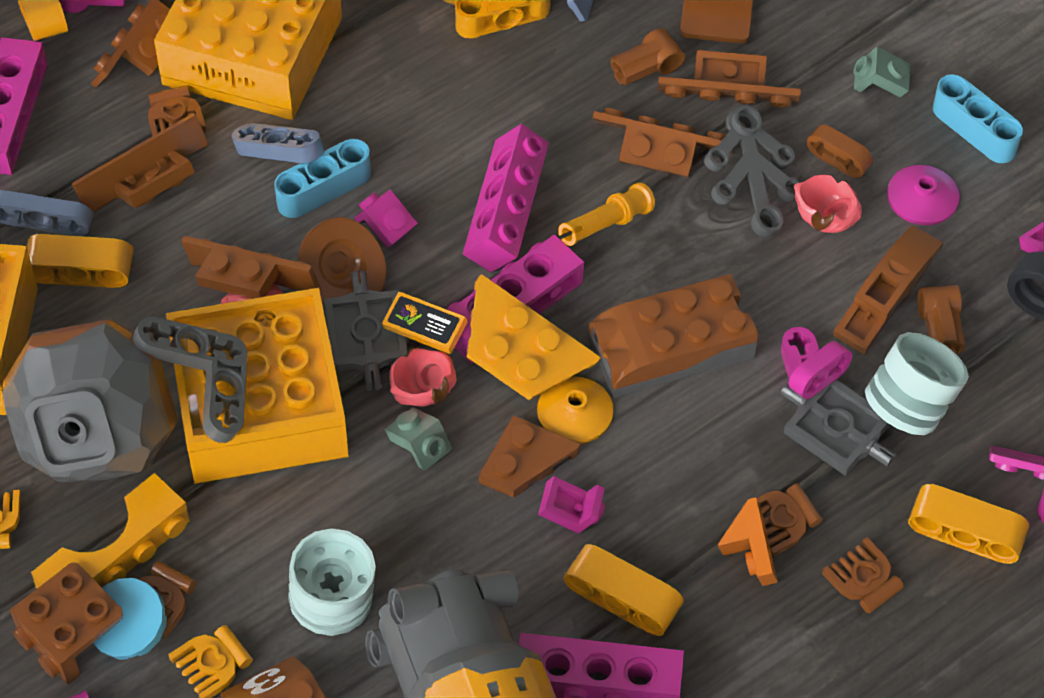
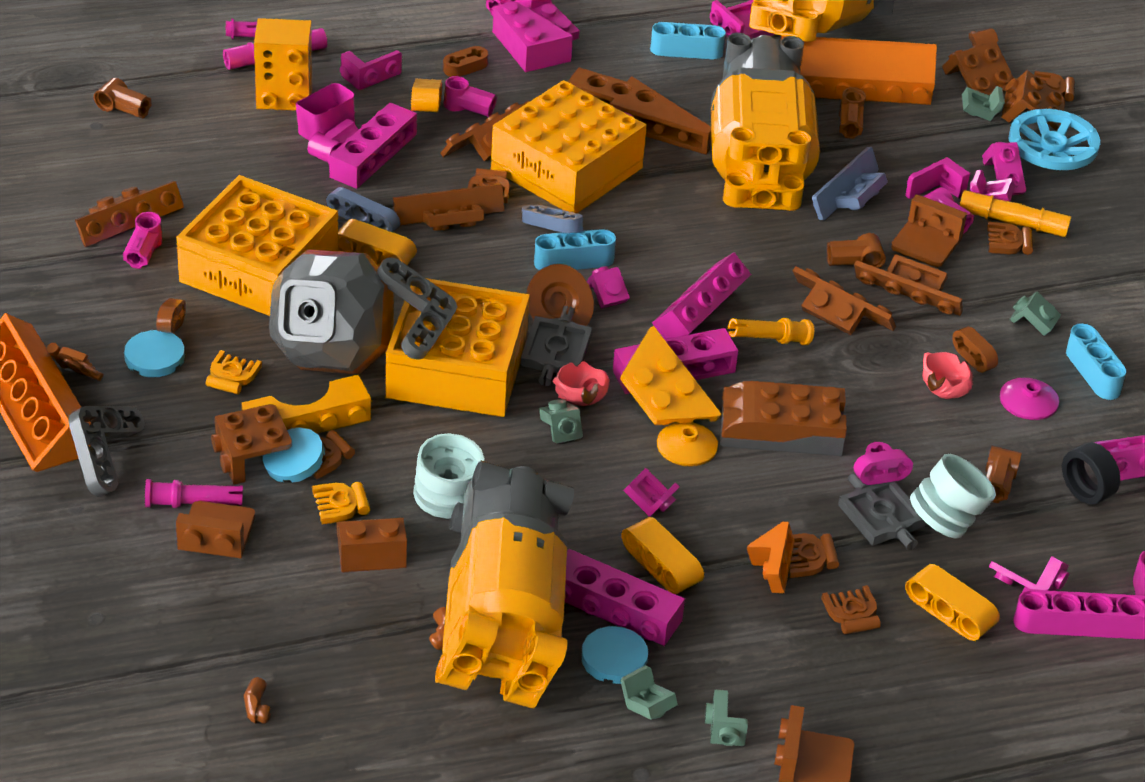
camera: 20 degrees right, 15 degrees down
(244, 271) = (478, 273): dark orange bracket -> none
(424, 322) = (599, 348): tile -> none
(524, 456) = (631, 456): dark orange wing -> none
(754, 166) = (906, 307): dark grey plant -> none
(887, 288) = (967, 435): dark orange slope -> none

